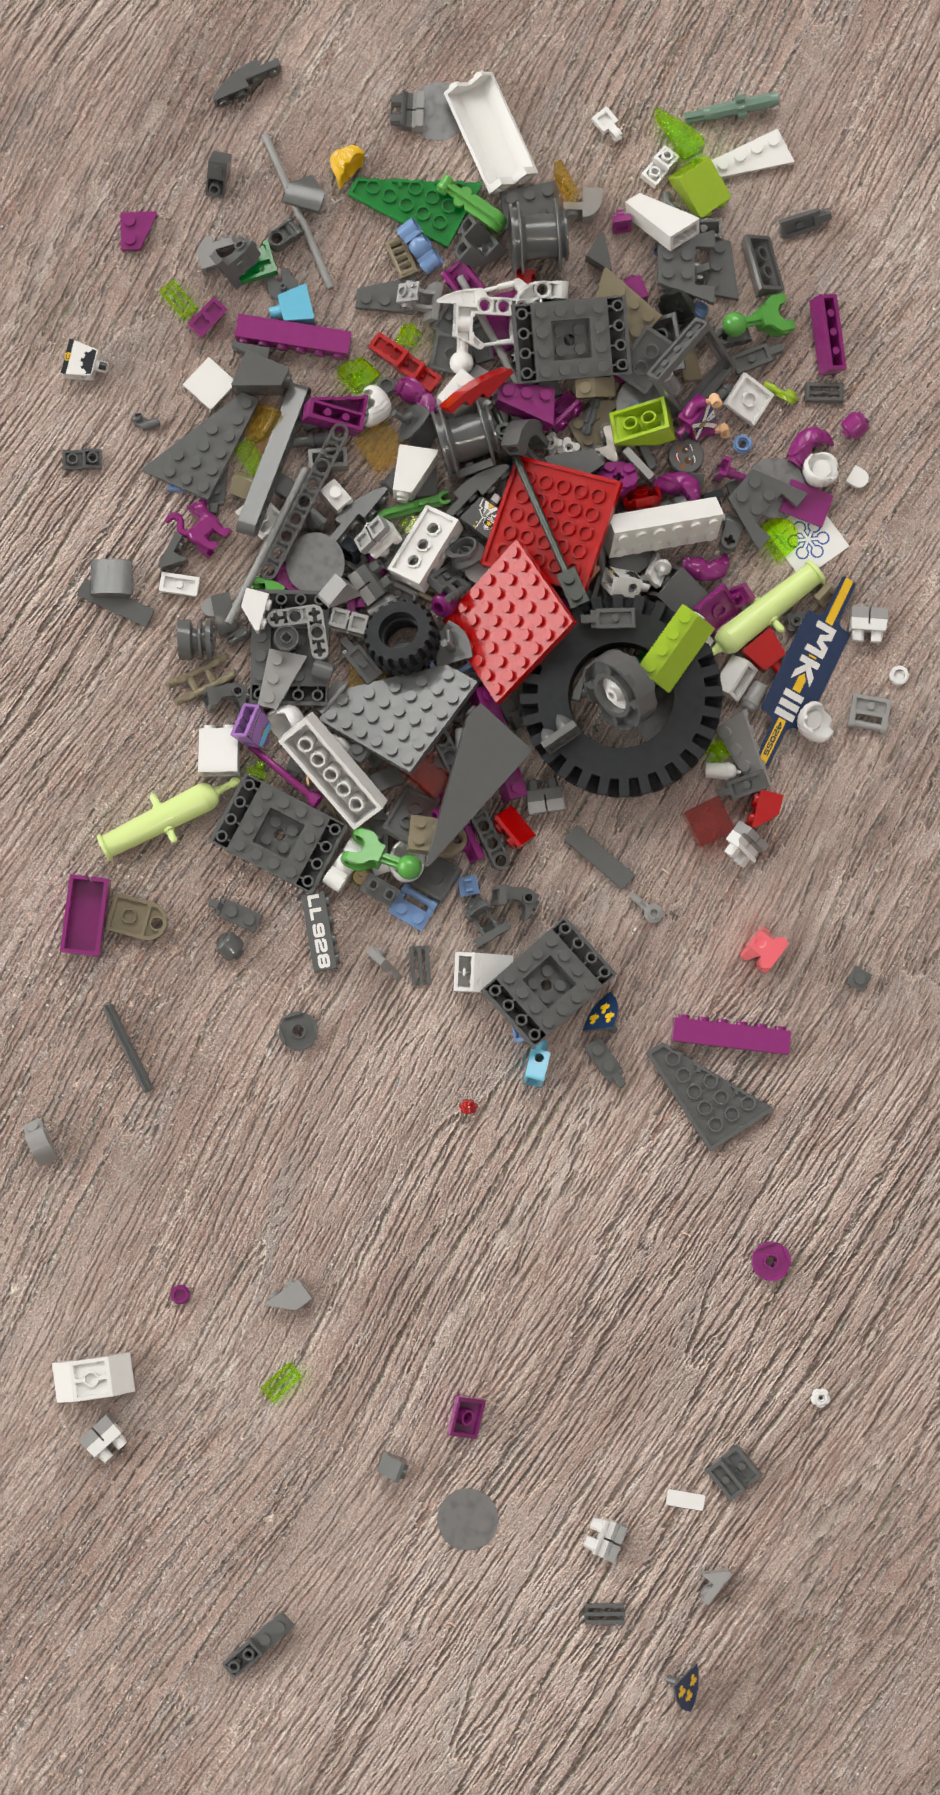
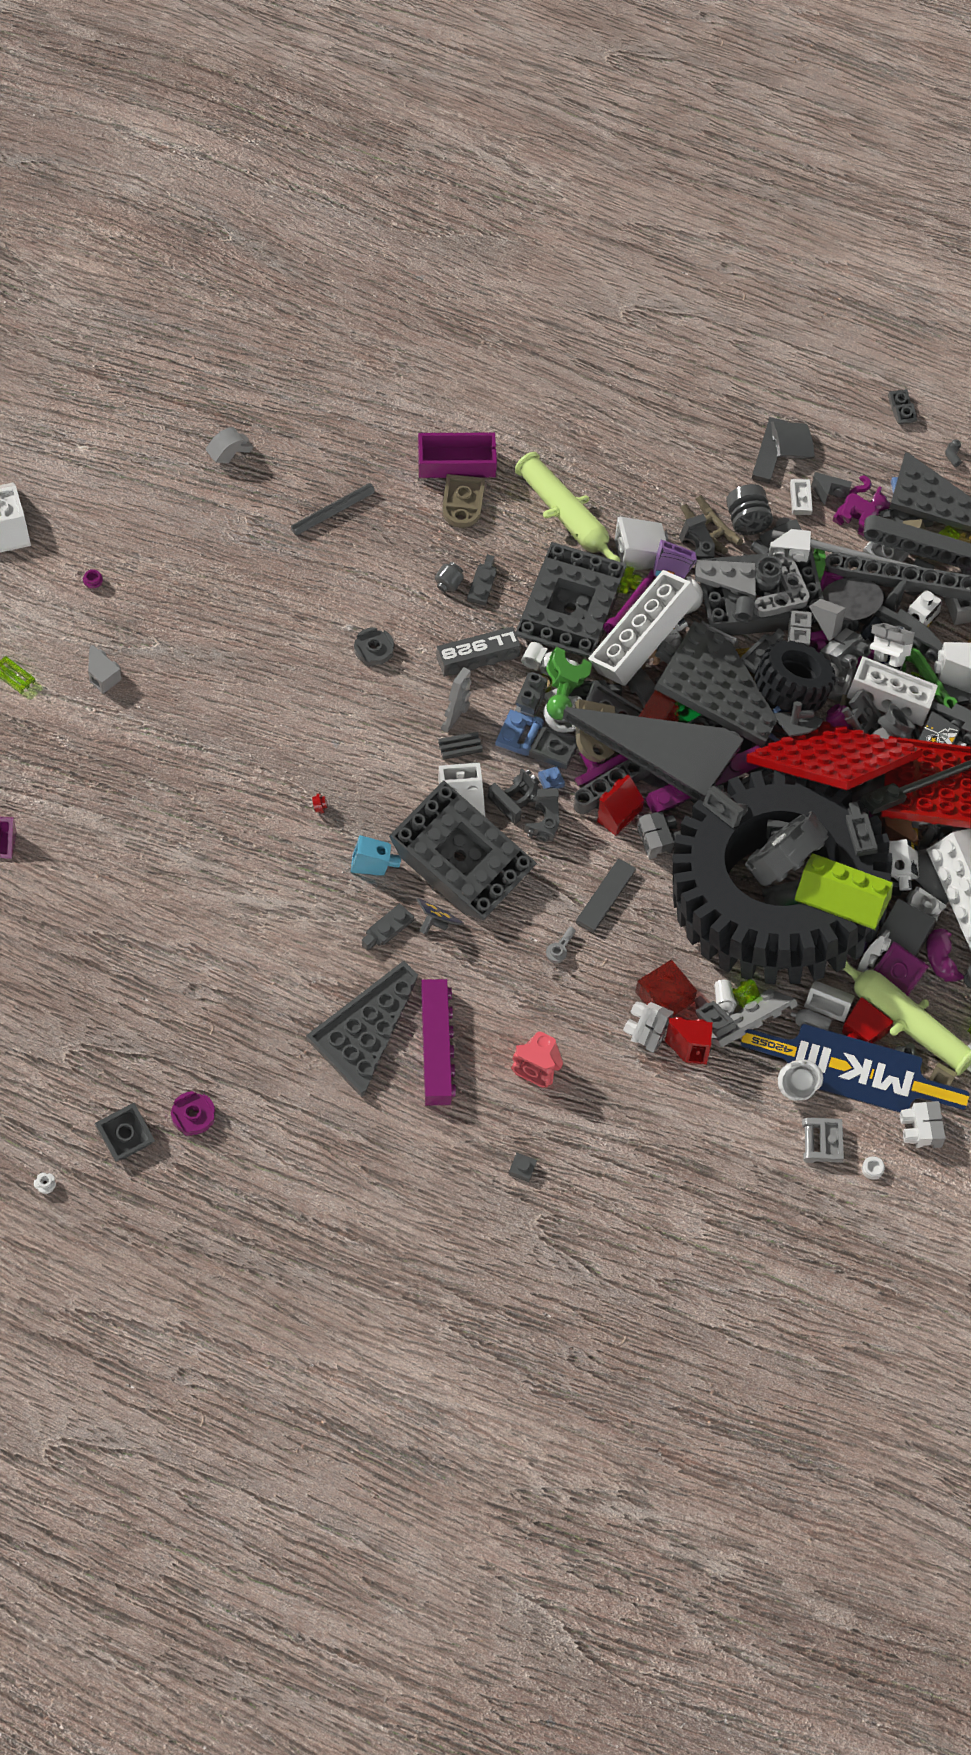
camera: 80 degrees right, 25 degrees down
(742, 594) = (921, 991): magenta tile -> none
(784, 1324) = (124, 1132): none -> dark grey slope

